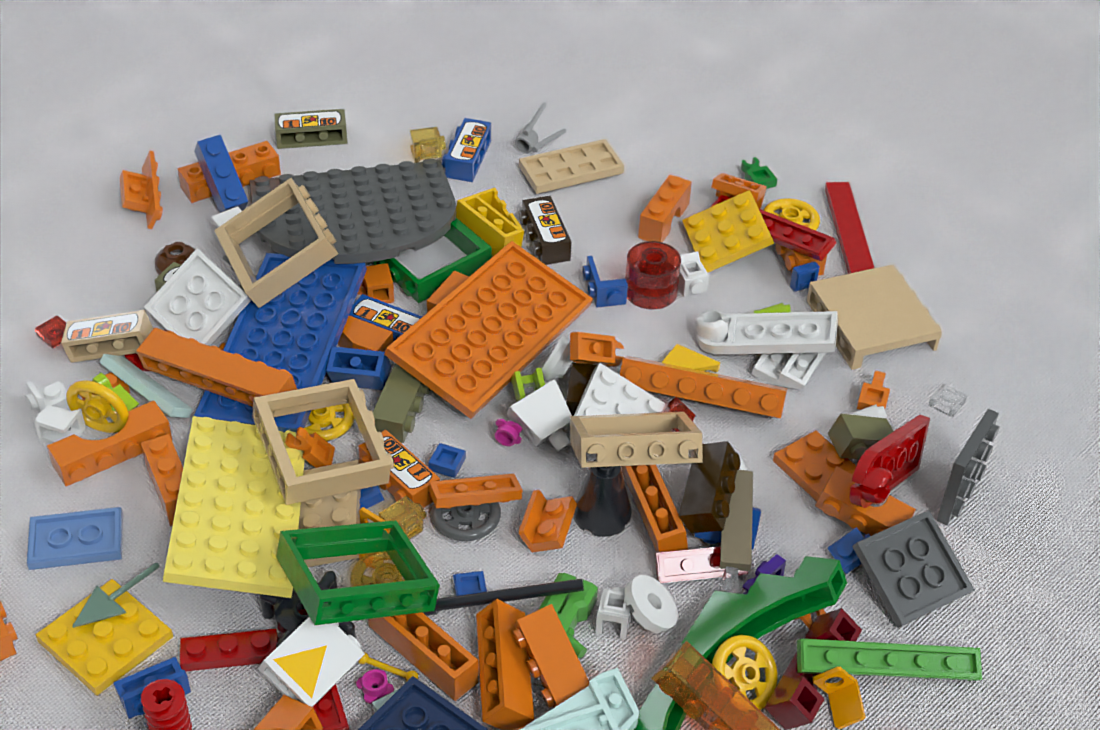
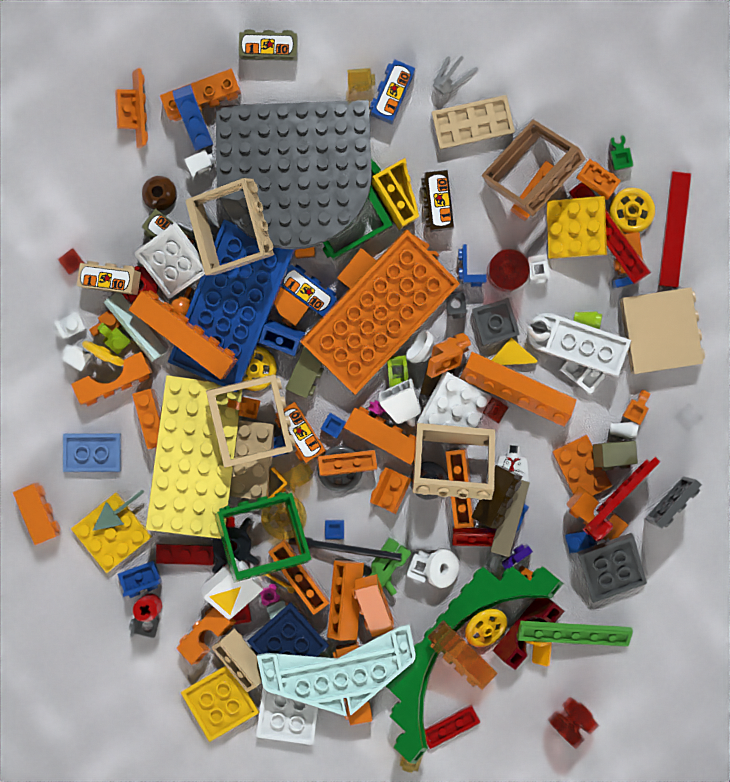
camera: 15 degrees right, 45 degrees up
(531, 462) = (382, 435): none -> orange brick
(596, 321) = (456, 312): none -> dark grey bracket
(651, 331) = (495, 322): none -> dark grey plate
(675, 162) = (551, 181): none -> medium nougat window

